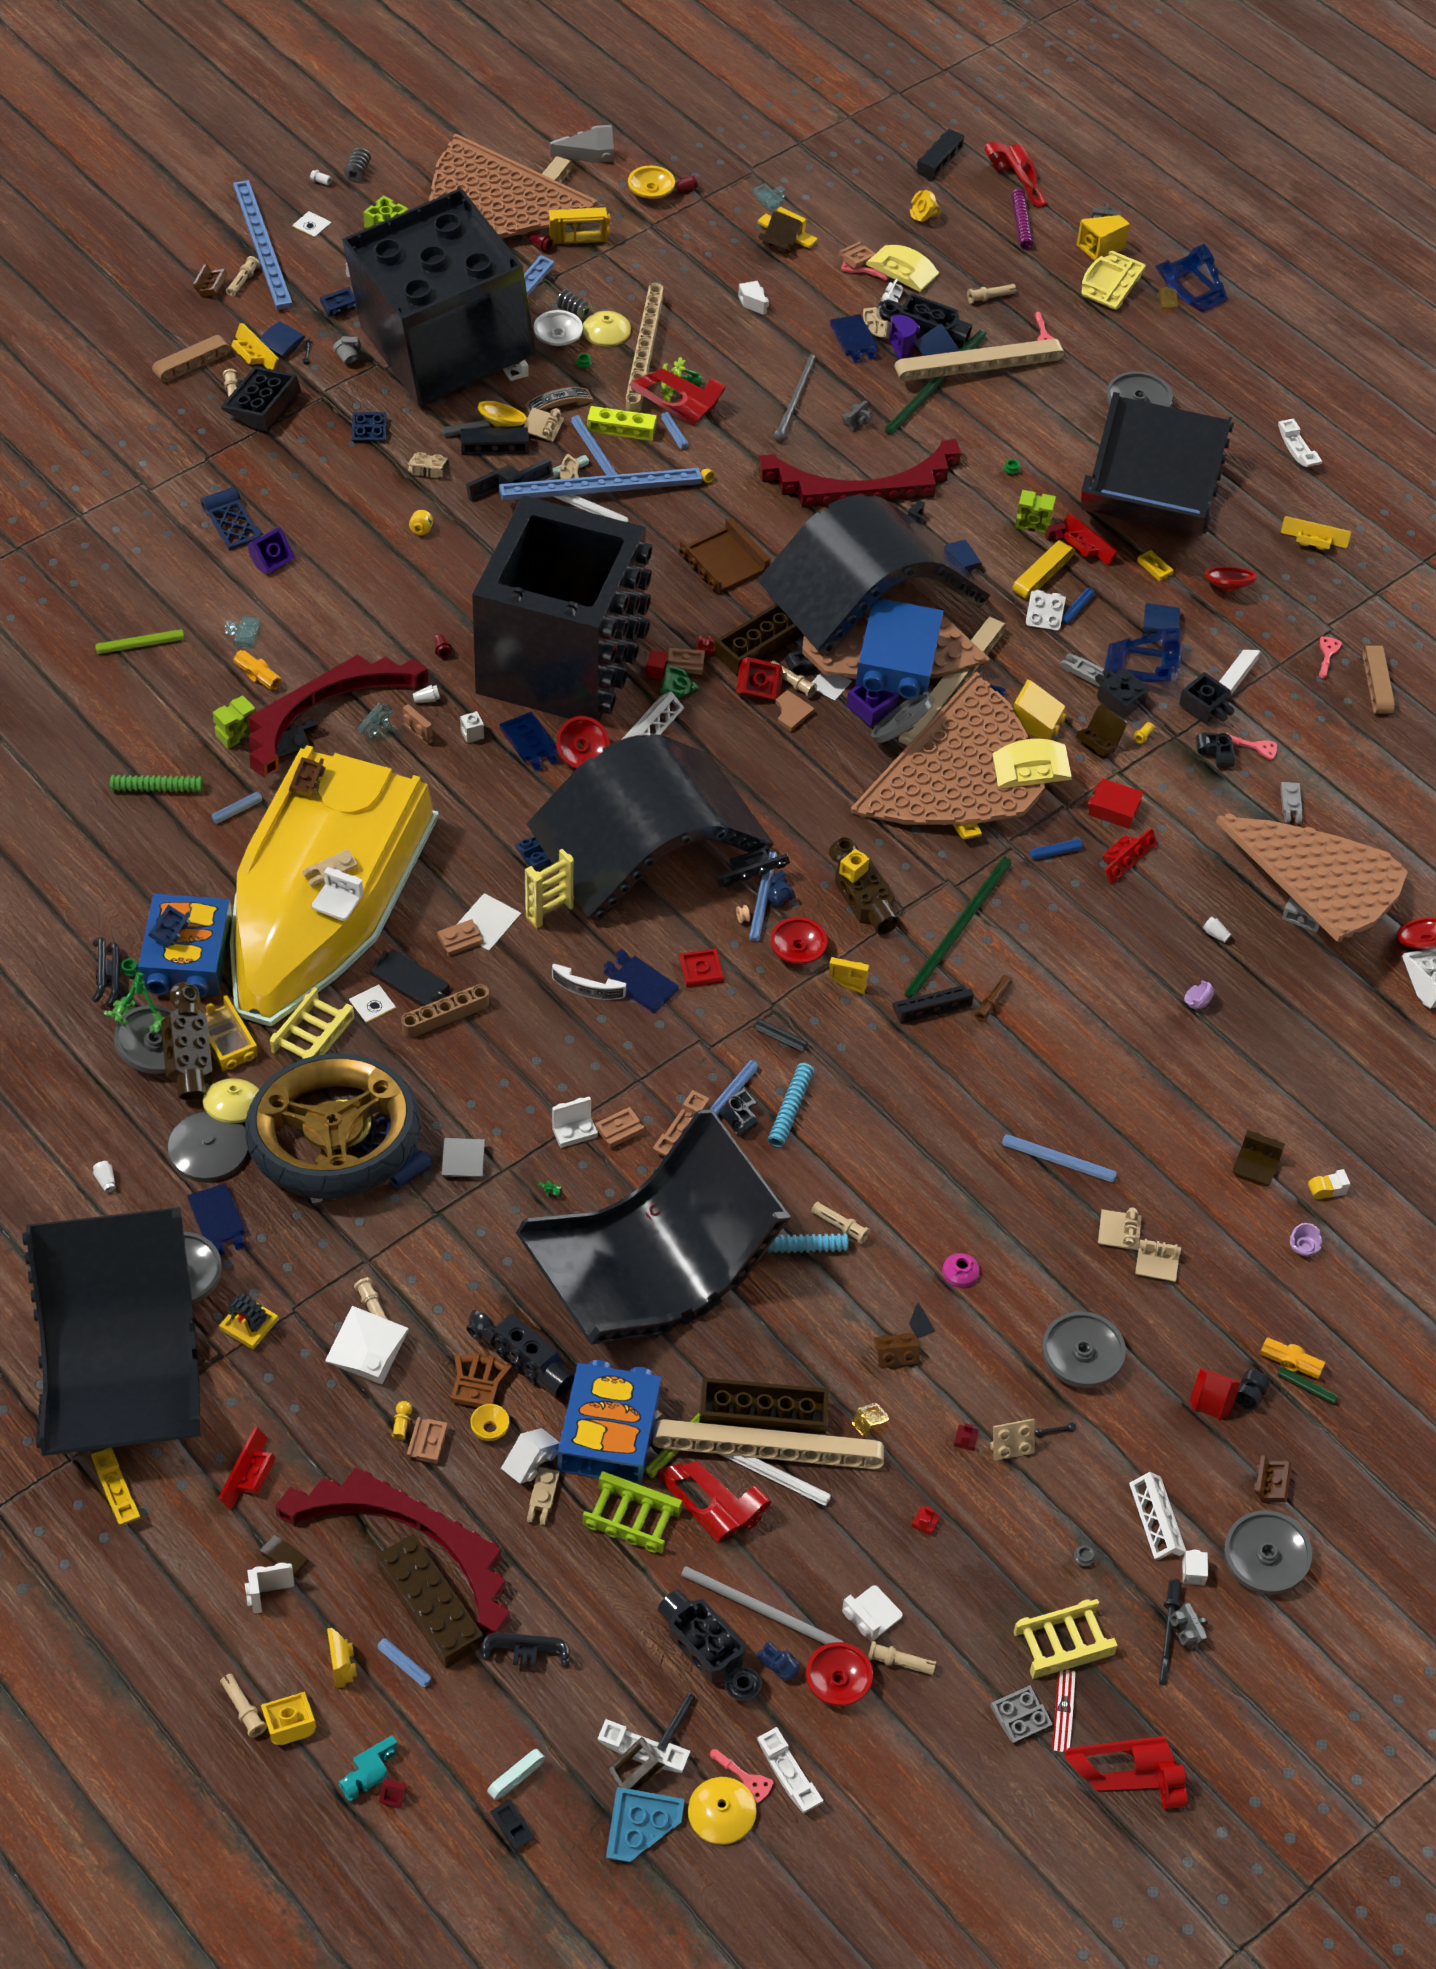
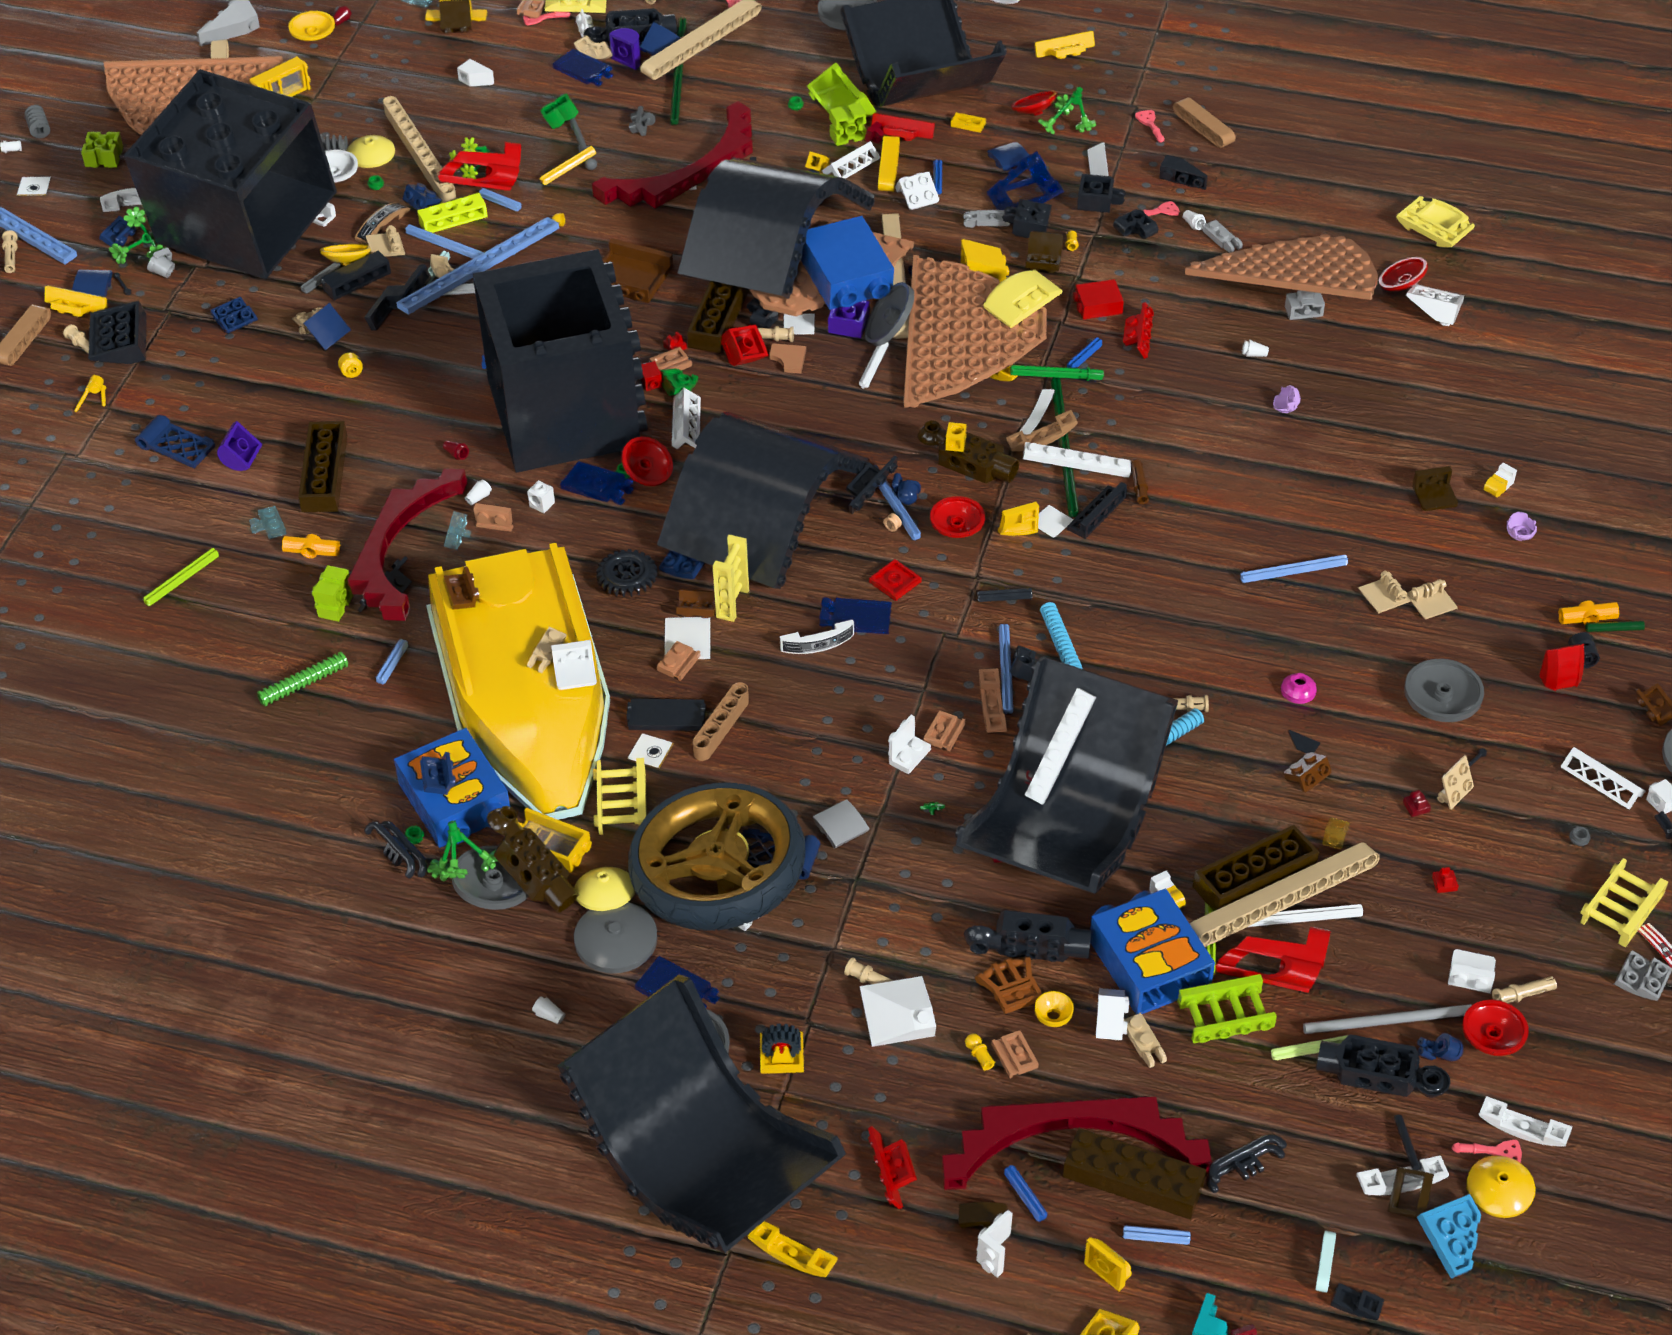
camera: 30 degrees left, 5 degrees down
(209, 434) = (94, 386): none -> yellow plant
(322, 603) = (323, 466): none -> dark brown brick
(333, 1560) = (1025, 1193): none -> blue axle
(343, 298) = (135, 218): none -> bright green plant
(428, 477) = (327, 326): none -> dark blue slope
(491, 842) = (626, 576): none -> black gear
(511, 894) = (696, 603): none -> reddish brown bracket
(609, 393) = (419, 196): none -> dark blue bracket
(666, 1587) = (1301, 1049): none -> yellowish green axle
(675, 1380) = (1163, 881): none -> white leg
(683, 1198) = (1060, 746): none -> white plate
(757, 427) = (567, 165): none -> yellow axle
(790, 371) = (559, 111): none -> green brick
(858, 757) = (873, 365): none -> white axle
(885, 990) = (1053, 521): none -> white sticker
(945, 907) = (1044, 435): none -> medium nougat slope
(954, 946) = (1077, 459): none -> white plate
(963, 882) = (1039, 410): none -> white sticker
(976, 536) = (817, 162): none -> yellow brick
(1006, 546) = (852, 158): none -> white fence
(1011, 853) = (1059, 372): none -> green axle
(1058, 476) = (835, 90): none -> lime windscreen
(1259, 594) = (1065, 104): none -> bright green plant
(1278, 772) = (1194, 219): none -> white cone
(1308, 718) = (1182, 172): none -> black slope

